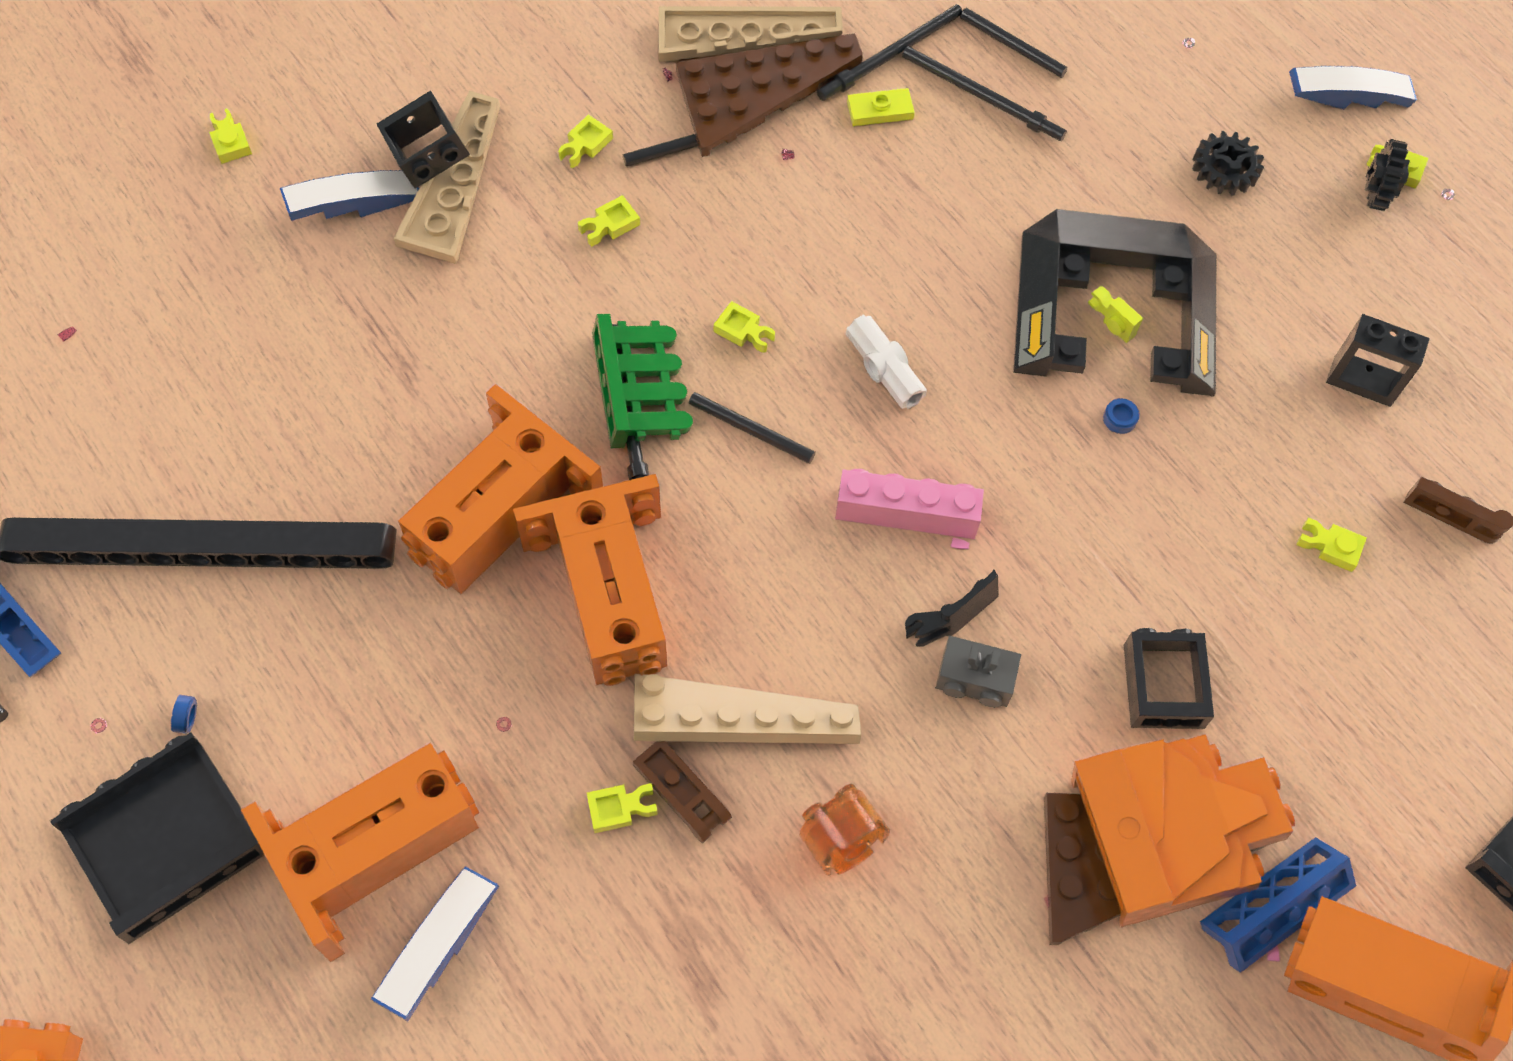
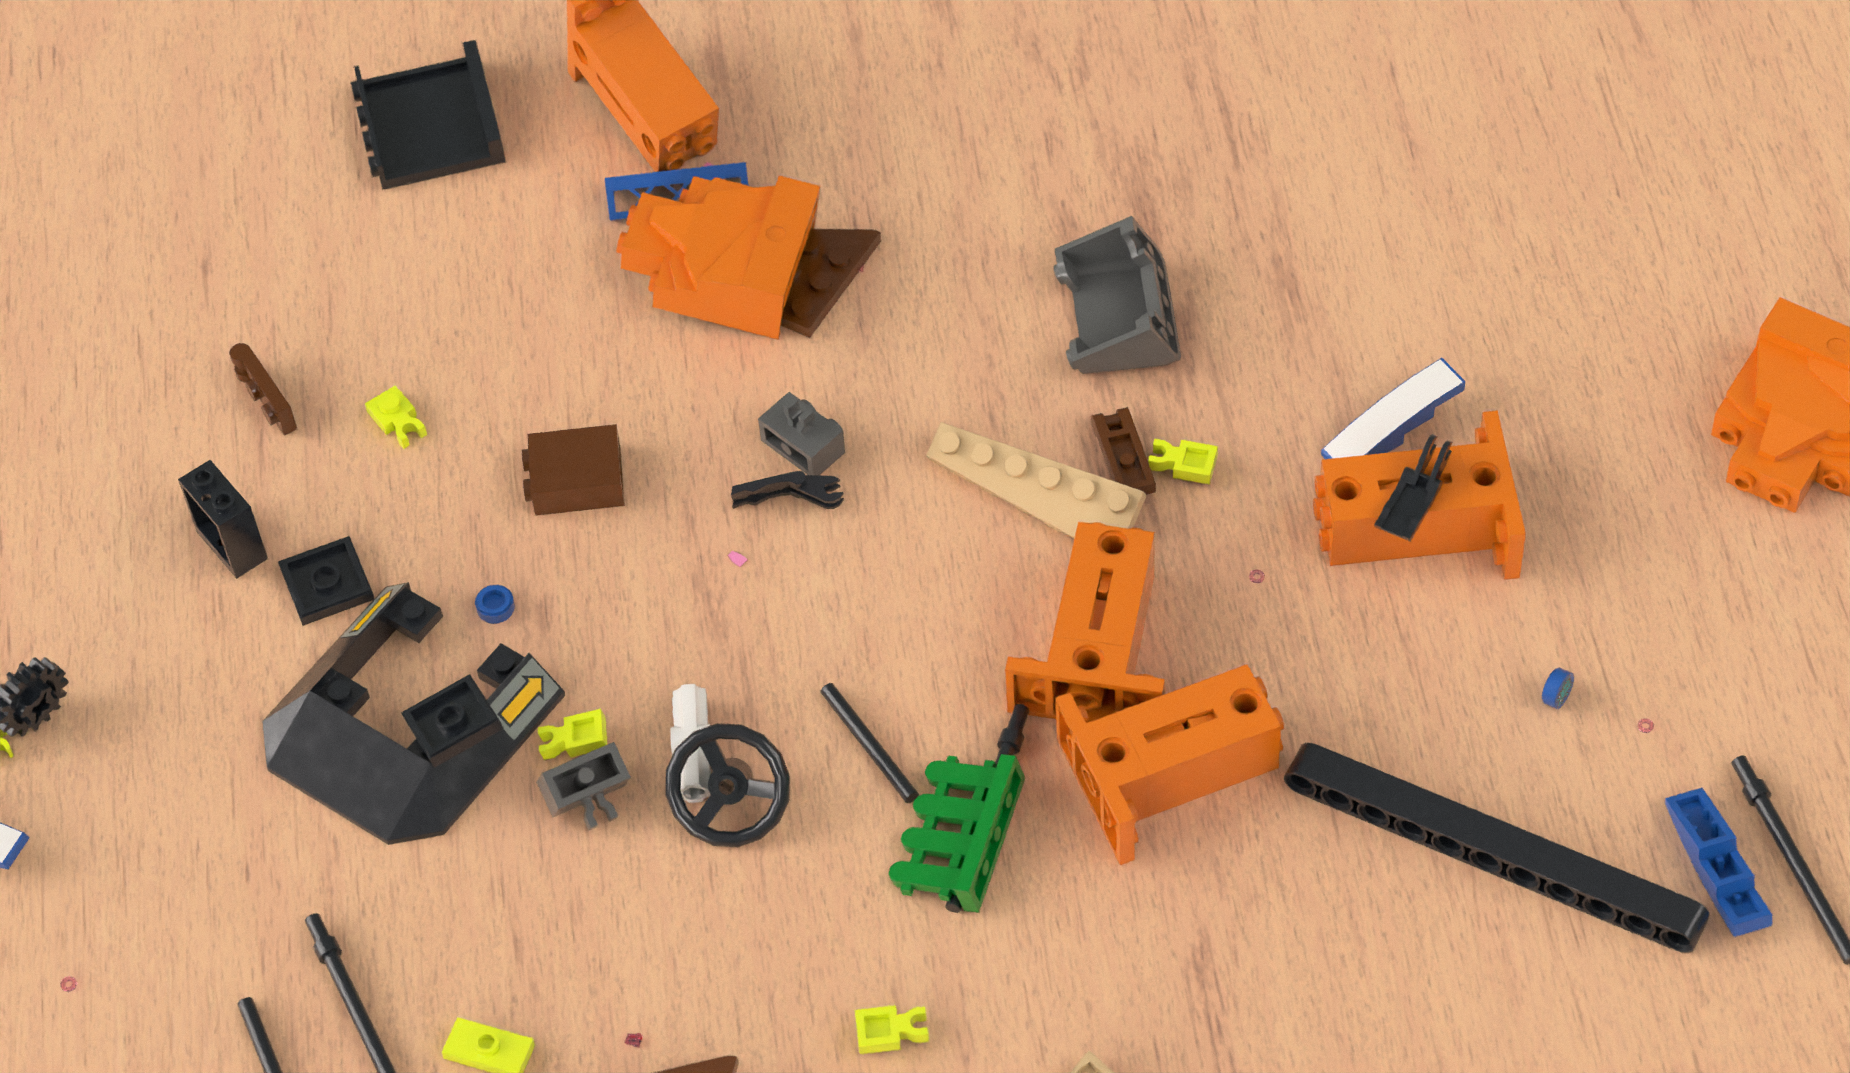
camera: 145 degrees left, 10 degrees down
(159, 836) = (1610, 593): black panel -> none
(361, 797) = (1414, 493): none -> black arm
(740, 325) = (816, 845): neon yellow plate -> none
(763, 955) = (1118, 300): none -> dark grey windscreen
(831, 327) = (722, 793): none -> black piece
(842, 830) = (1004, 353): clear orange brick -> none
(909, 503) = (766, 593): bright pink brick -> none
(941, 288) = (583, 781): none -> dark grey brick
(976, 335) = (578, 735): none -> neon yellow plate
(1068, 275) = (452, 720): none -> black tile
(1119, 316) = (423, 680): neon yellow plate -> none
(1145, 550) = (573, 470): none -> reddish brown brick
(1167, 714) = (653, 336): black window -> none
(1227, 163) = (167, 802): black gear -> none
(1265, 379) = (326, 580): none -> black tile

